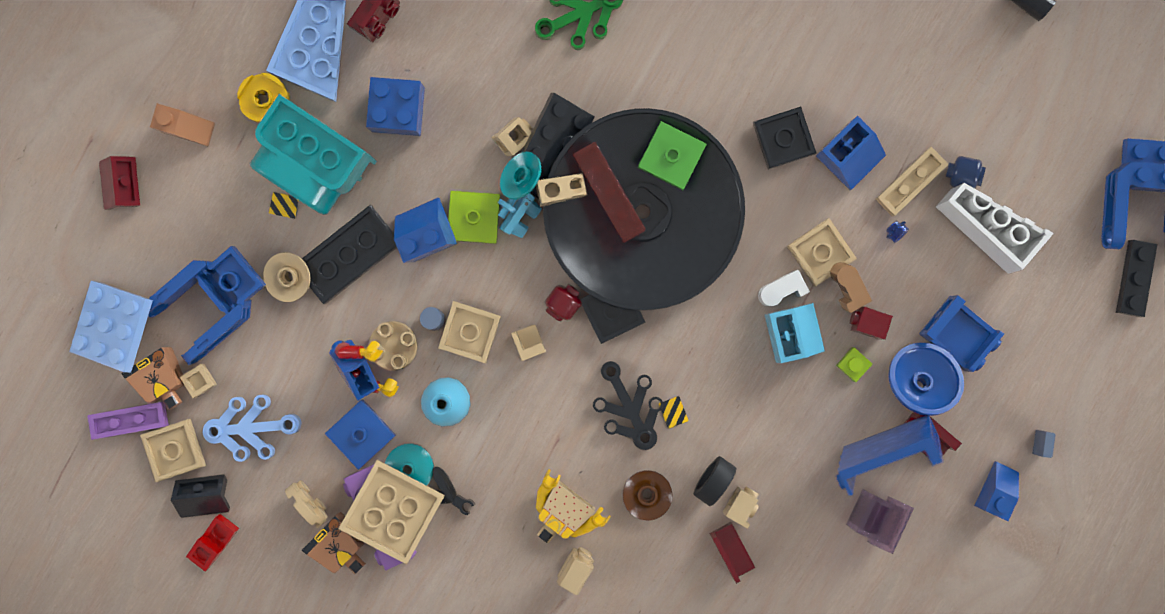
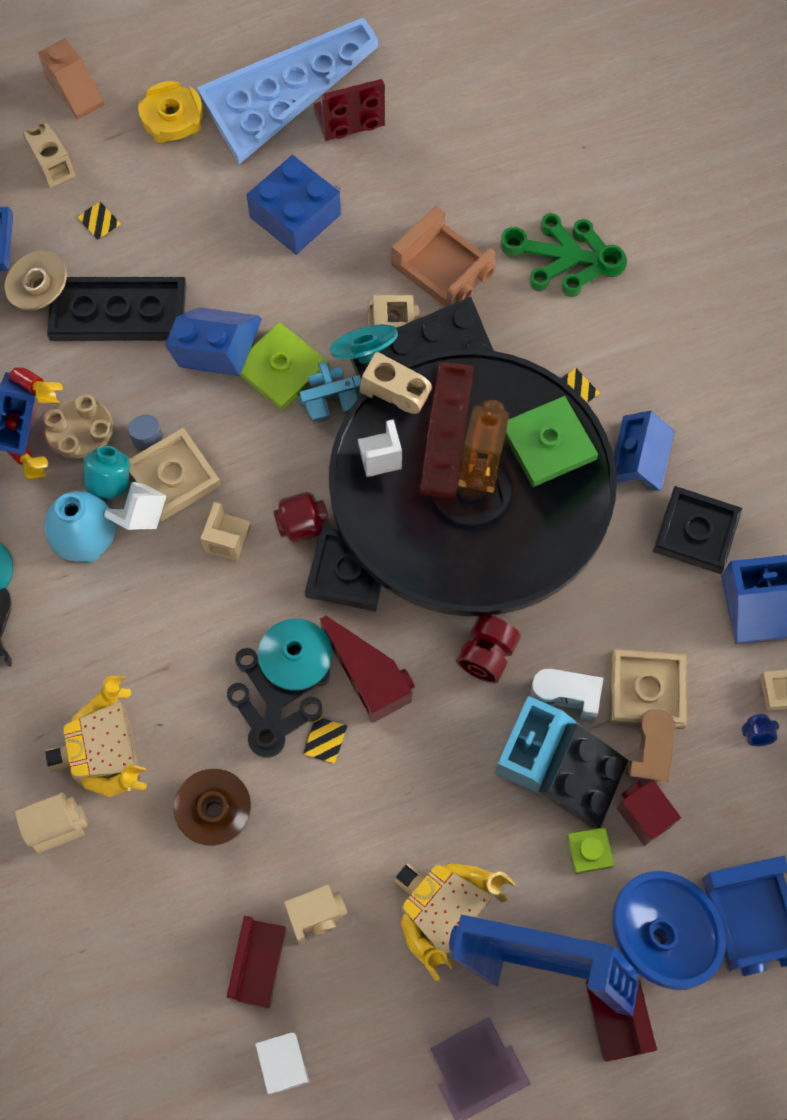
camera: 35 degrees right, 20 degrees down
(215, 187) = (49, 154): none -> tan leg
(306, 156) = (162, 175): teal brick -> none
(435, 362) = (106, 473): none -> teal head
(473, 370) = (141, 508): none -> white panel
(513, 74) = (441, 260): none -> nougat panel
(584, 236) = (381, 452): none -> white panel
(624, 369) = (299, 670): none -> teal dish
(644, 196) = (487, 436): none -> clear orange torso
(651, 97) = (581, 385): none -> sticker
(673, 361) = (371, 673): none -> dark red slope
(715, 481) = (305, 848): black tyre -> none
(719, 111) = (643, 449): none -> blue panel
(722, 290) = (490, 644): none -> dark red wheel
(785, 590) = (282, 1063): none -> white panel
(805, 454) = (438, 903): none -> torso
(825, 330) = (583, 775): none -> black plate

